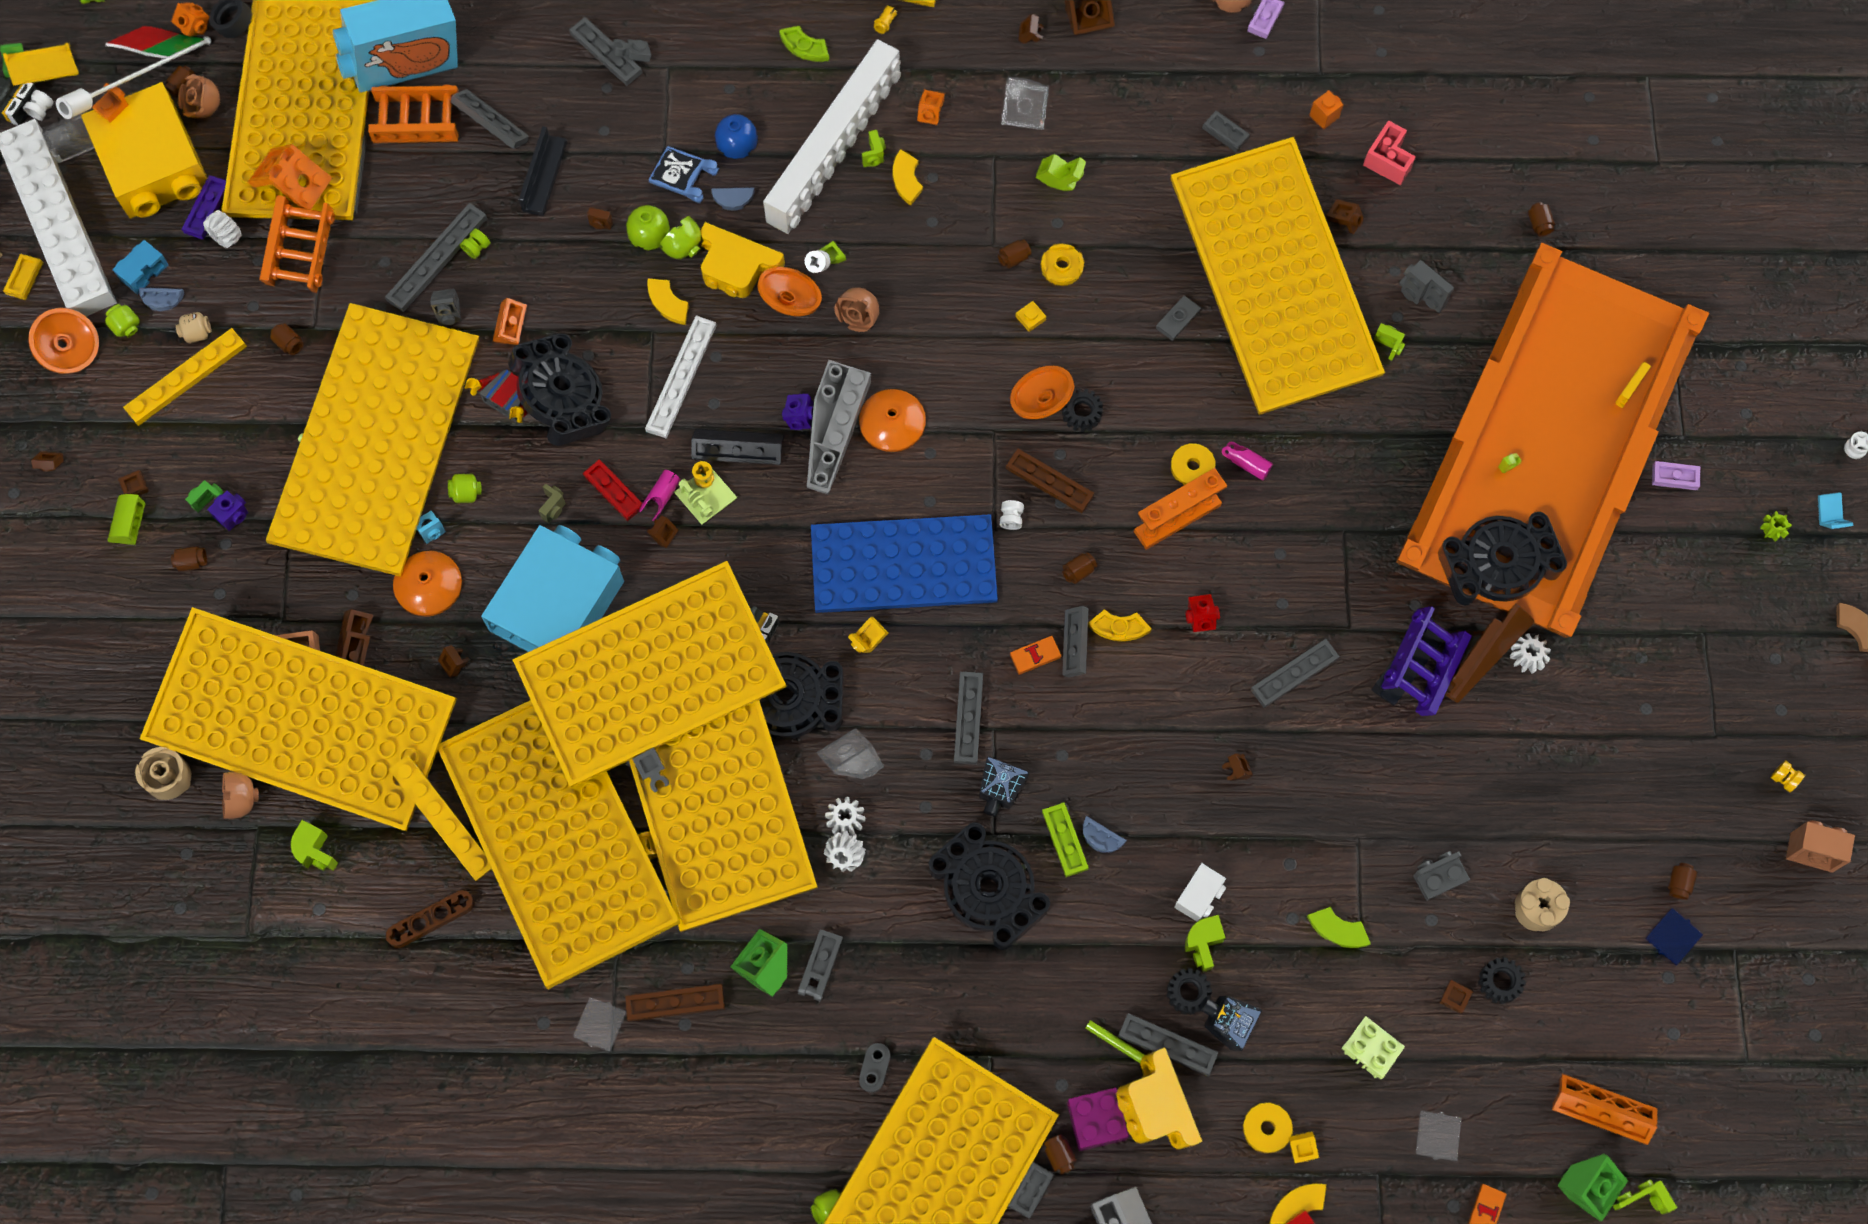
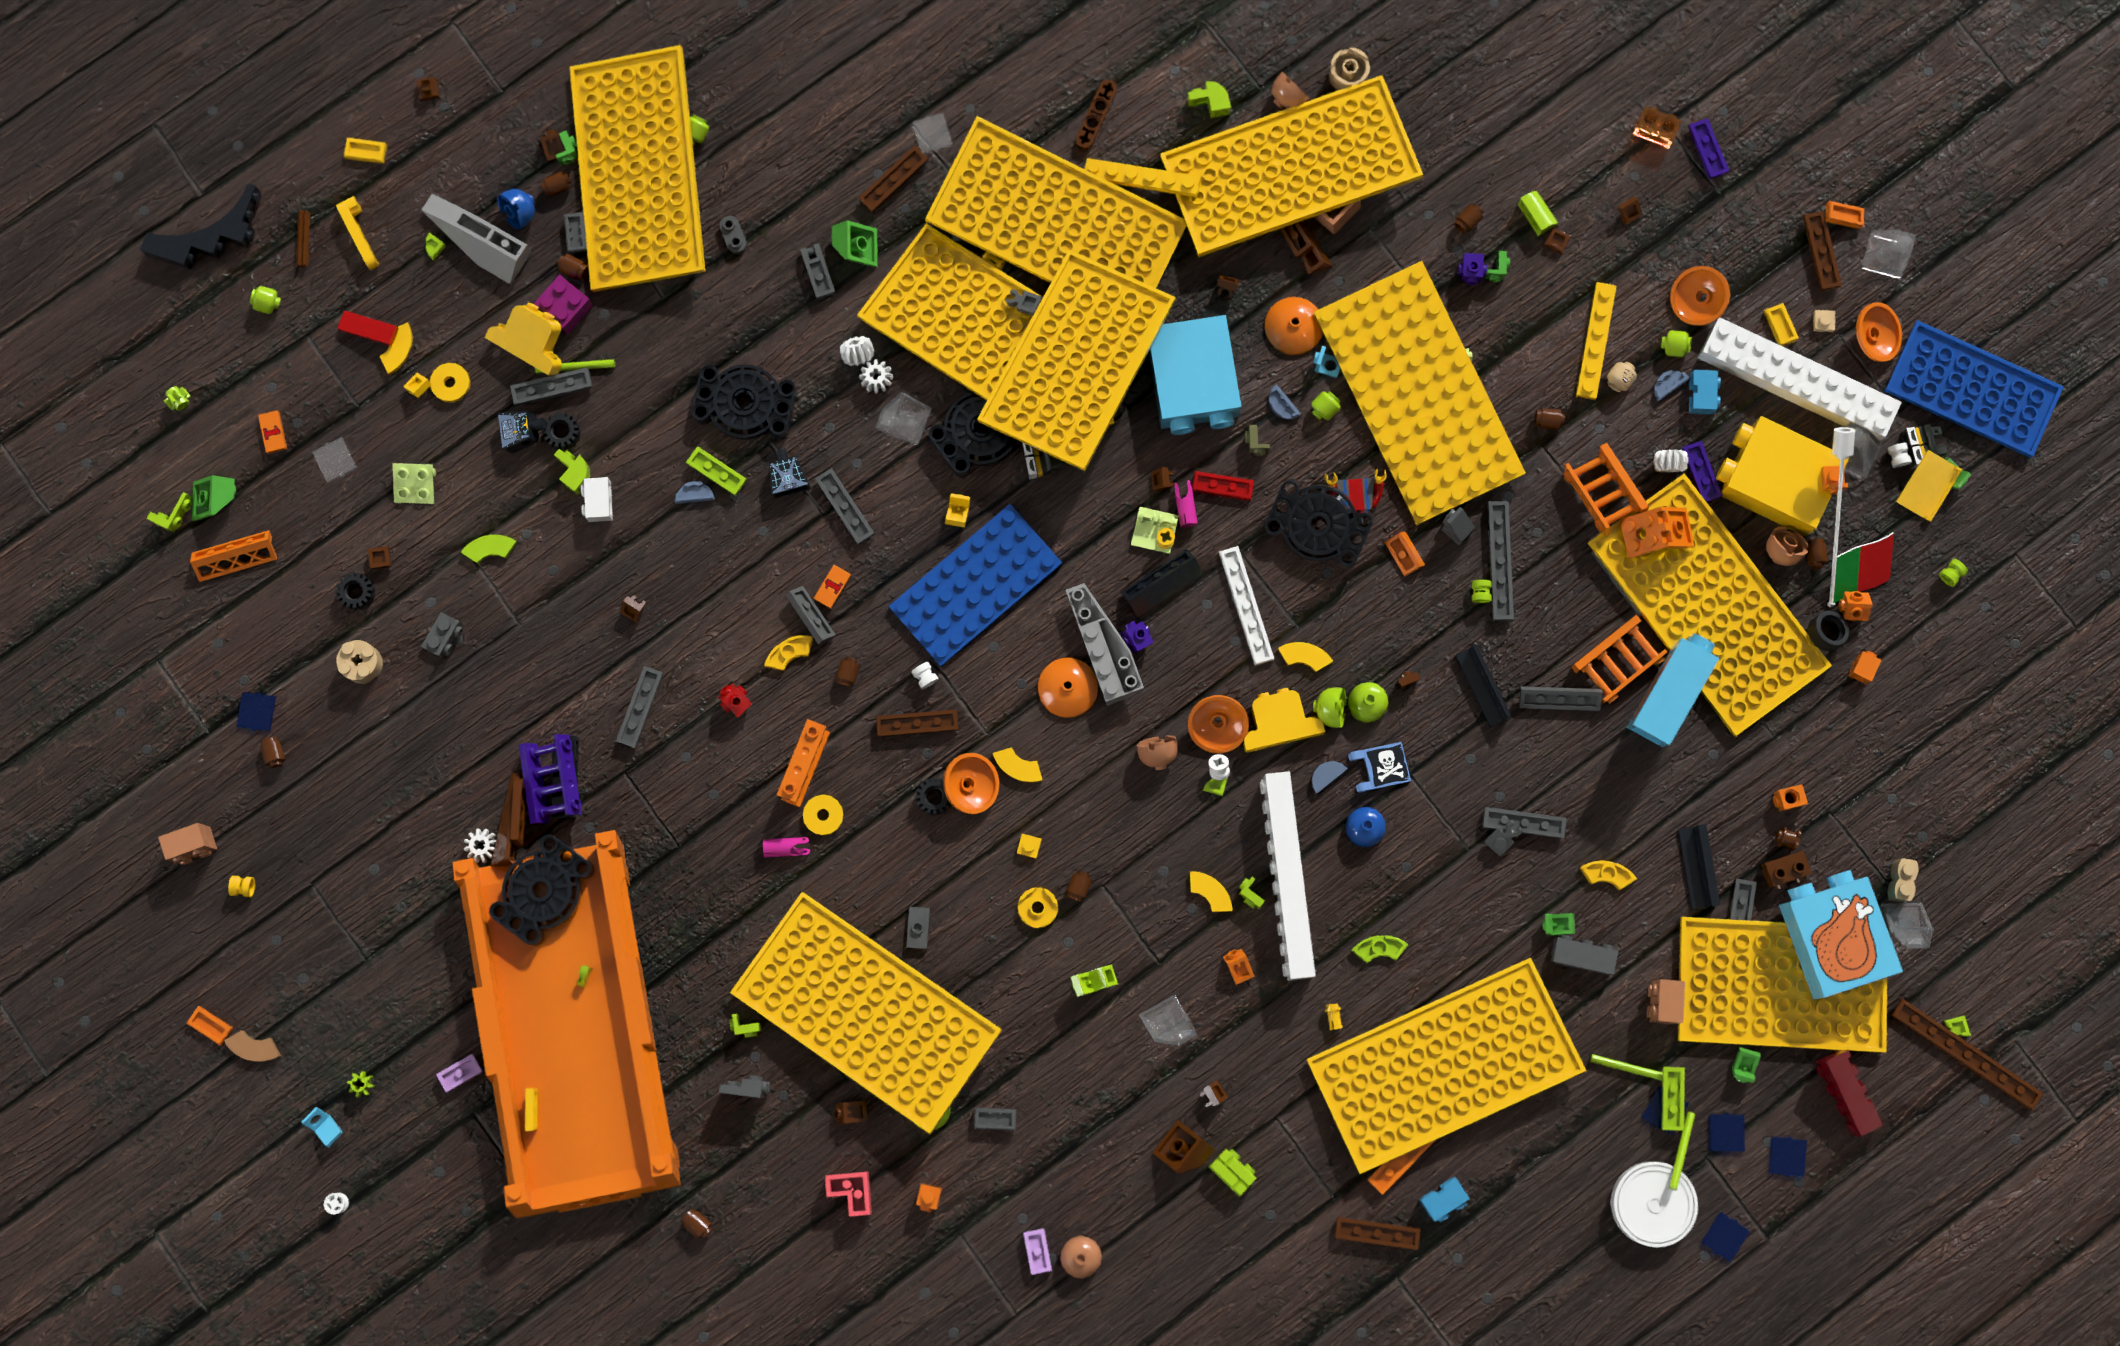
camera: 145 degrees right, 10 degrees up
(500, 522) = (1281, 405): none -> sand blue tile
(990, 385) = (1016, 767): none -> yellow tile

